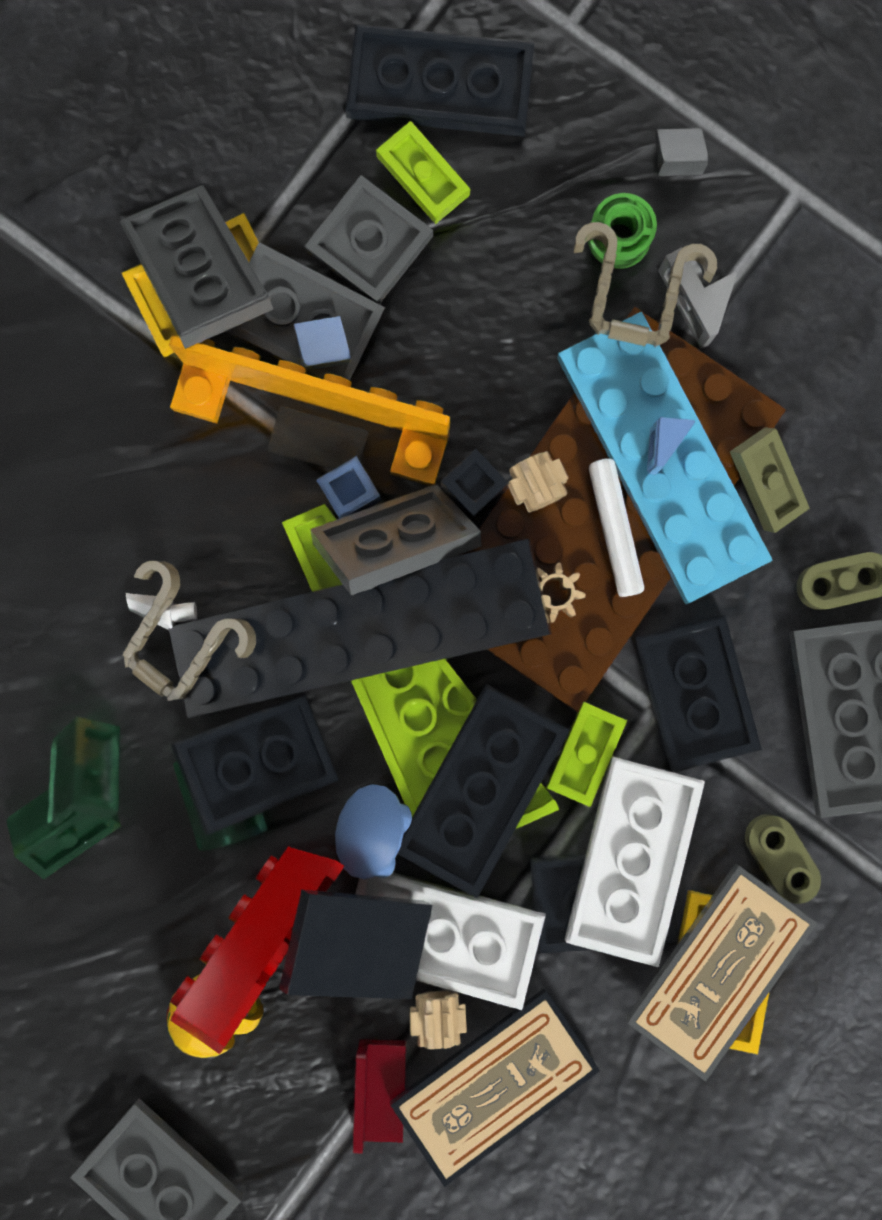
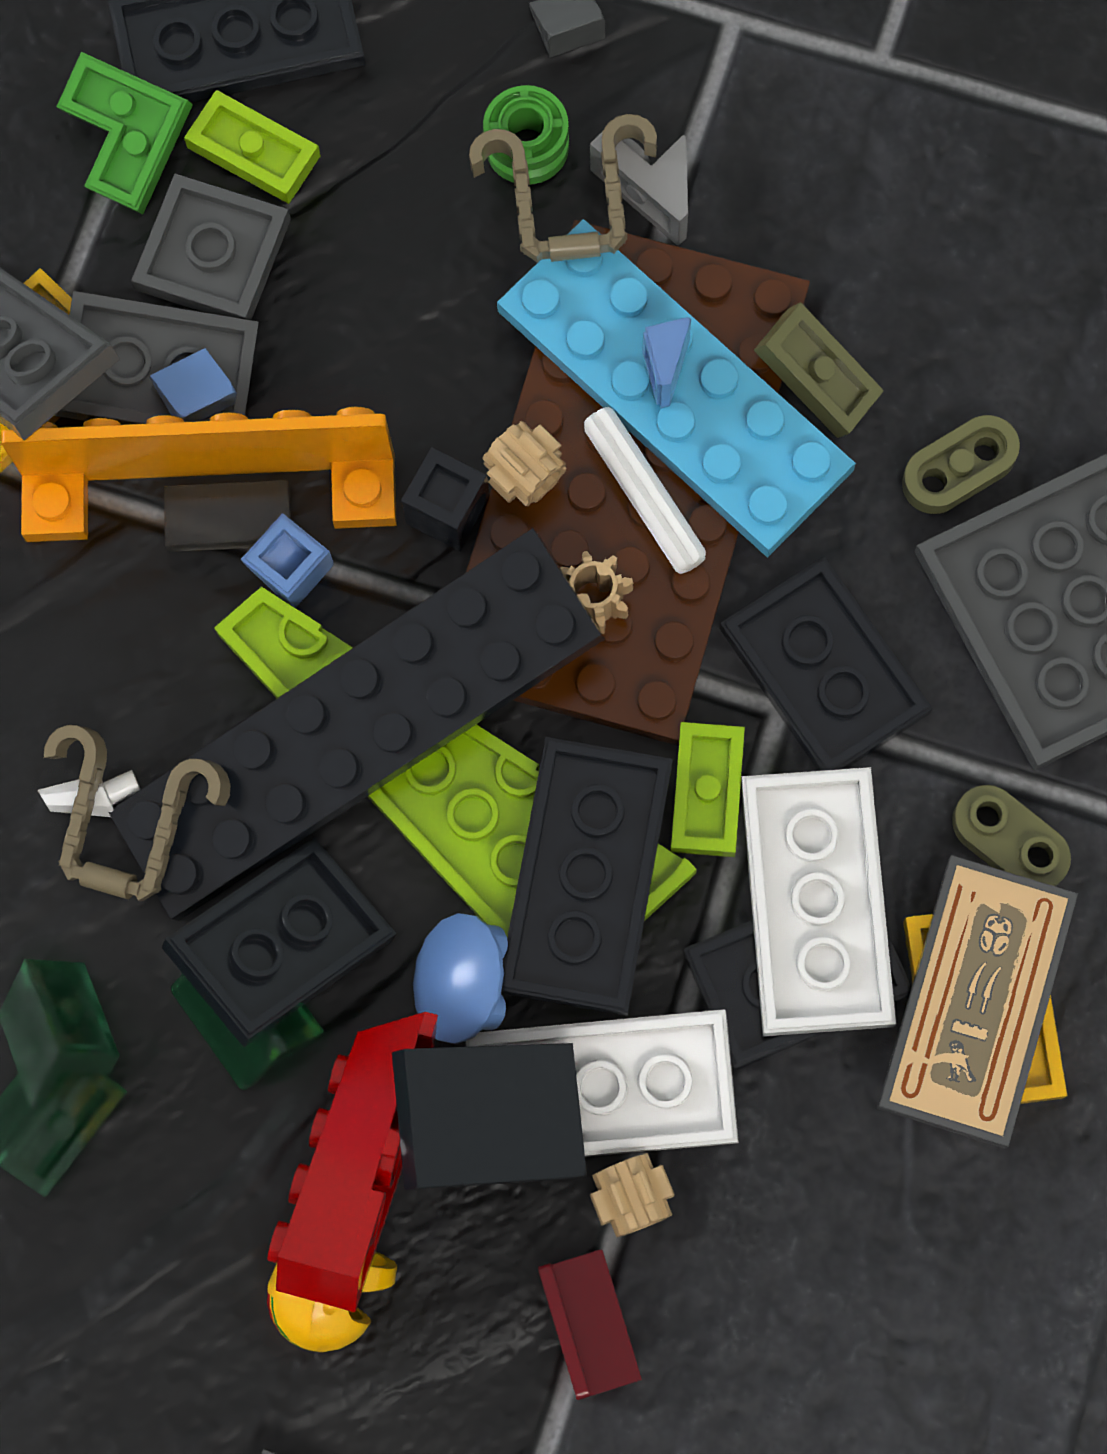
camera: 15 degrees left, 10 degrees down
(348, 128) = (139, 123): none -> bright green tile
(395, 538) = (366, 592): dark grey plate -> none
(494, 1087) = (738, 1262): tile -> none

